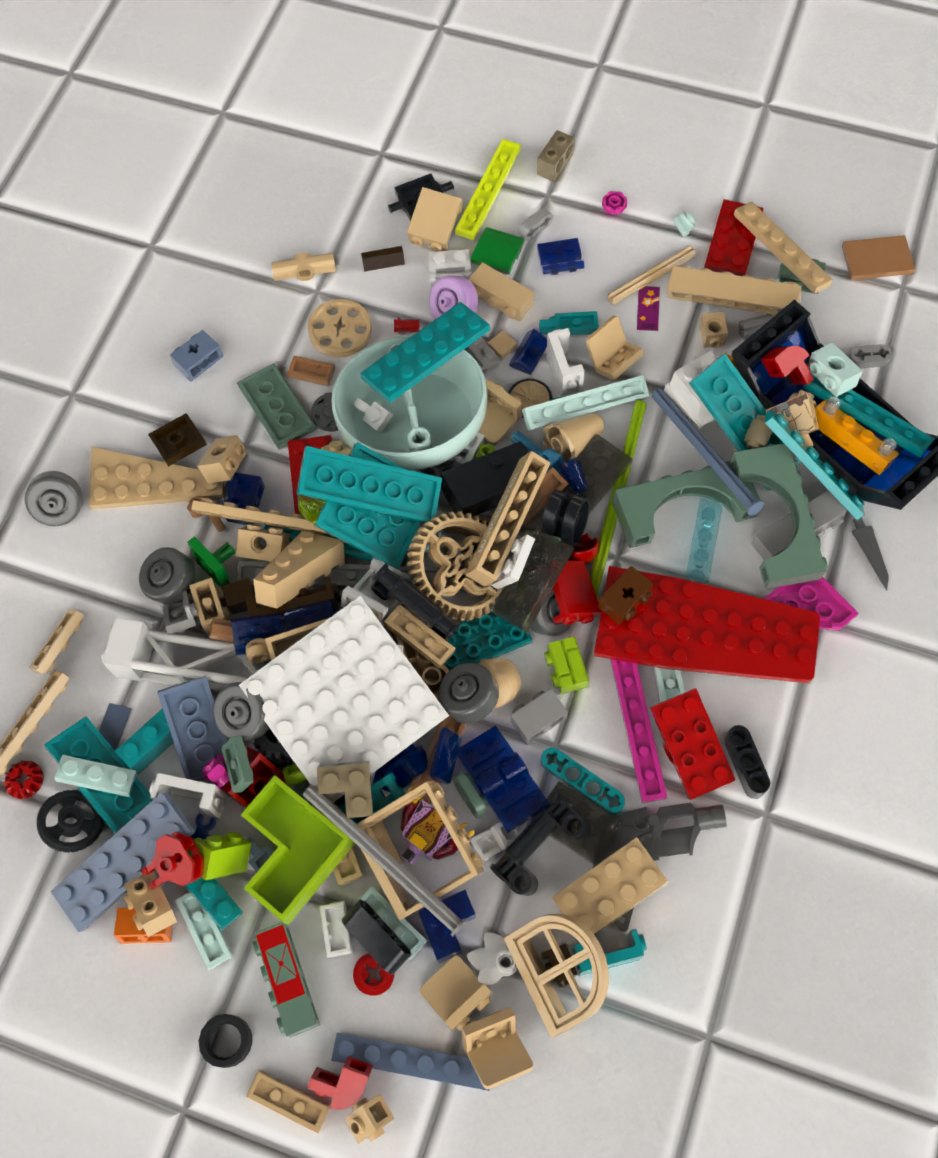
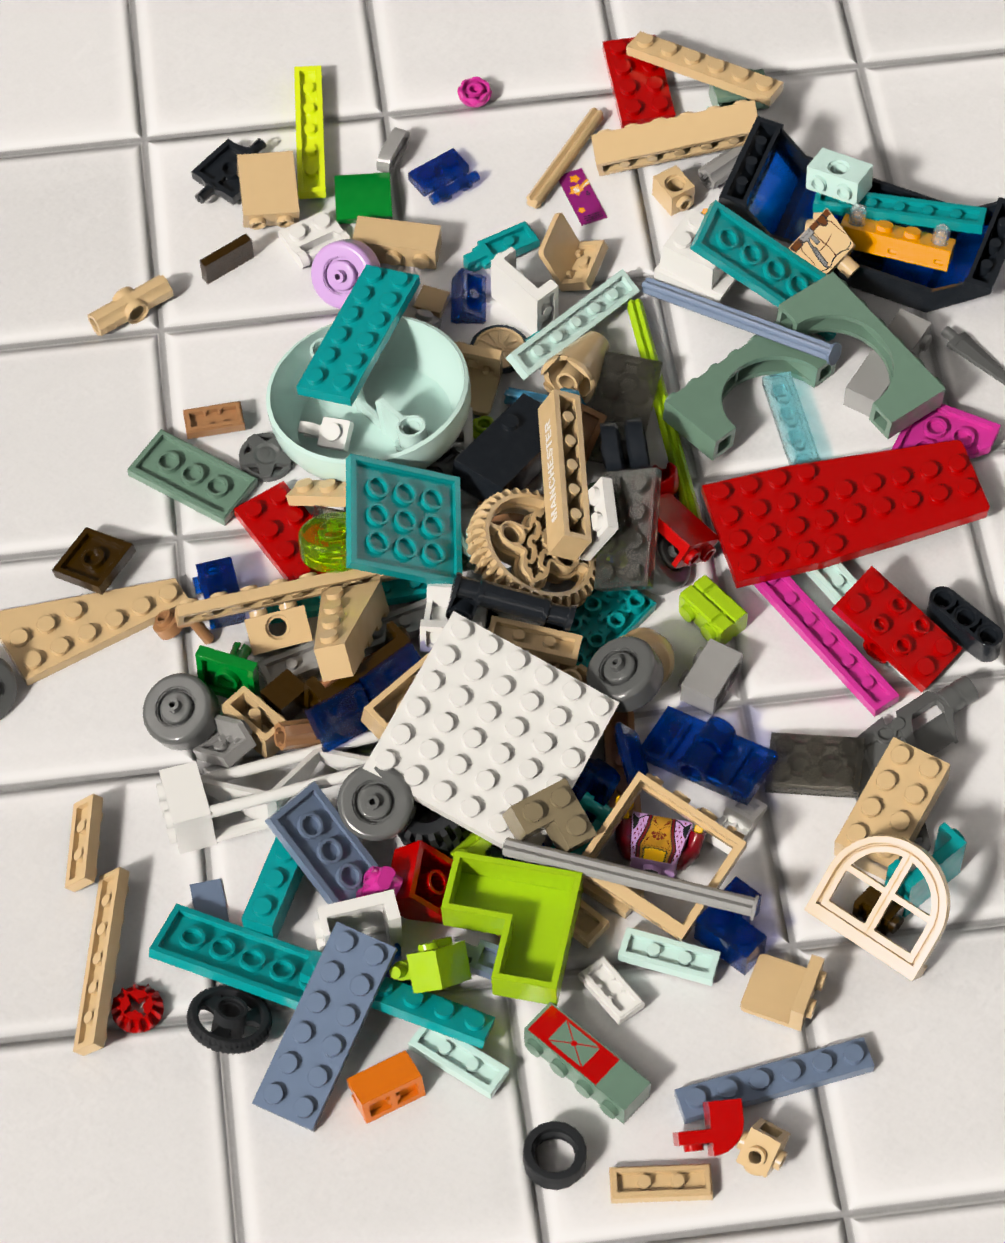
camera: 30 degrees left, 10 degrees down
(95, 775) = (234, 954): light aqua plate -> none
(150, 905) = (387, 1049): tan brick -> none
(174, 861) = (397, 984): red hinge -> none
(196, 355) = (56, 457): sand blue brick -> none
(222, 459) = (171, 555): tan brick -> none
(237, 764) = (405, 857): sand green plate -> none
(257, 651) = (355, 733): tan tile -> none
(346, 333) = (210, 367): tan wedge -> none
(361, 976) = (671, 1004): red gear -> none
(368, 485) = (389, 496): teal plate -> none
(376, 936) = (664, 968): black beam -> none
(406, 325) = (301, 324): red pin -> none
(474, 801) = (691, 788): sand green plate -> none
(489, 959) = (803, 939): white plate -> none
(496, 1049) = (855, 1019): tan bracket -> none
(511, 865) = (770, 836): black piece -> none
(555, 156) = (372, 63): dark tan brick -> none
(574, 475) = (606, 402): clear blue cone -> none
(584, 778) = (797, 717): teal beam -> none
(631, 584) = (741, 503): reddish brown brick -> none
(684, 222) = (571, 84): light aqua plate -> none
(758, 433) = (793, 273): dark tan brick -> none
(788, 361) = (787, 187): red brick -> none
(810, 459) = (863, 278): teal plate -> none
(870, 356) = (864, 149): light grey beam -> none
(878, 257) = (815, 42): medium nougat tile -> none

